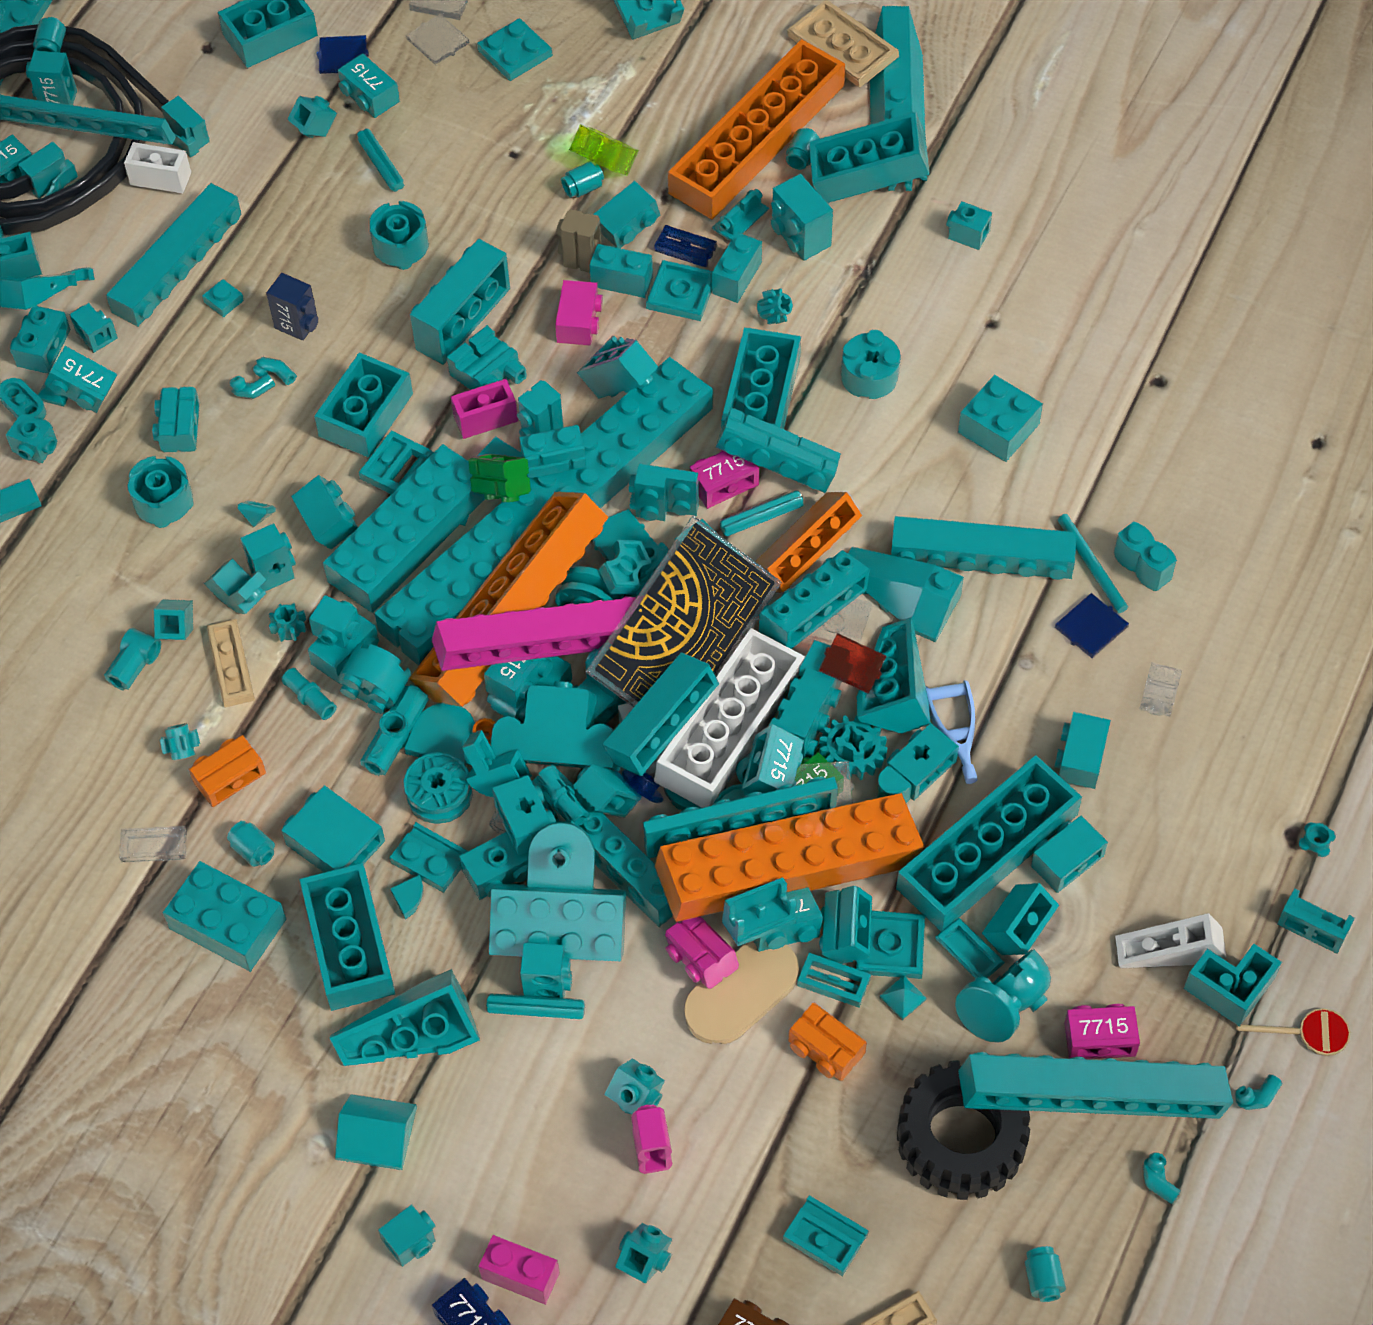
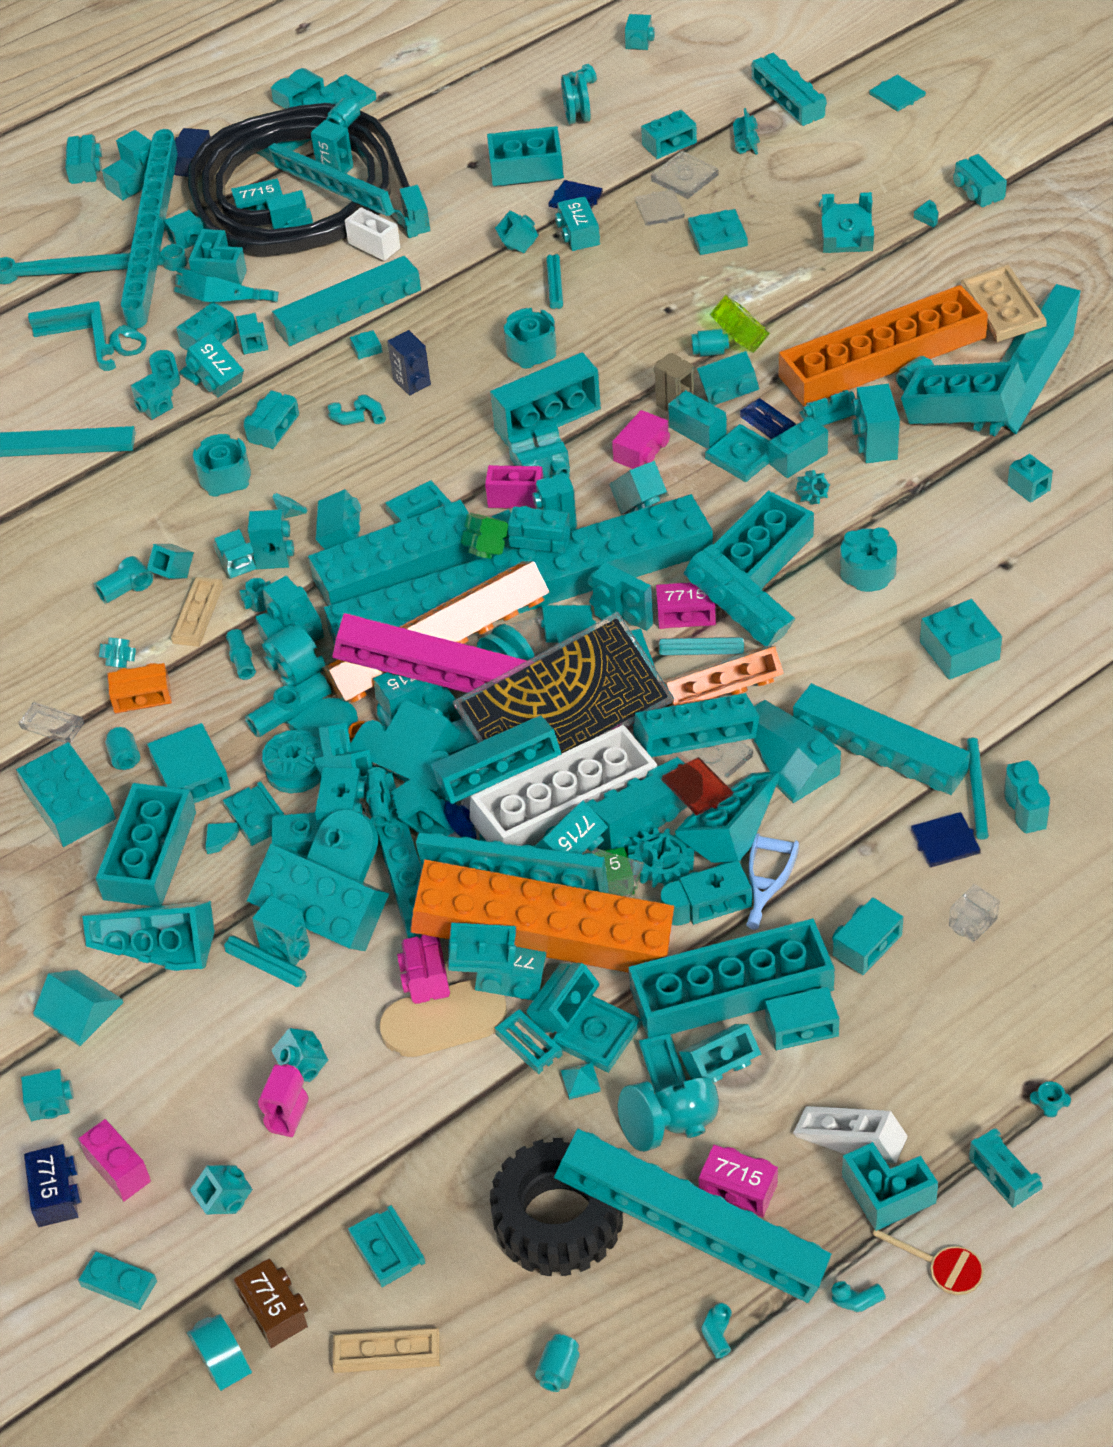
camera: 30 degrees right, 10 degrees down
(364, 404) = (420, 452): teal brick -> none
(622, 572) = (535, 640): teal tile -> none
(826, 1042) = (487, 1087): orange brick -> none

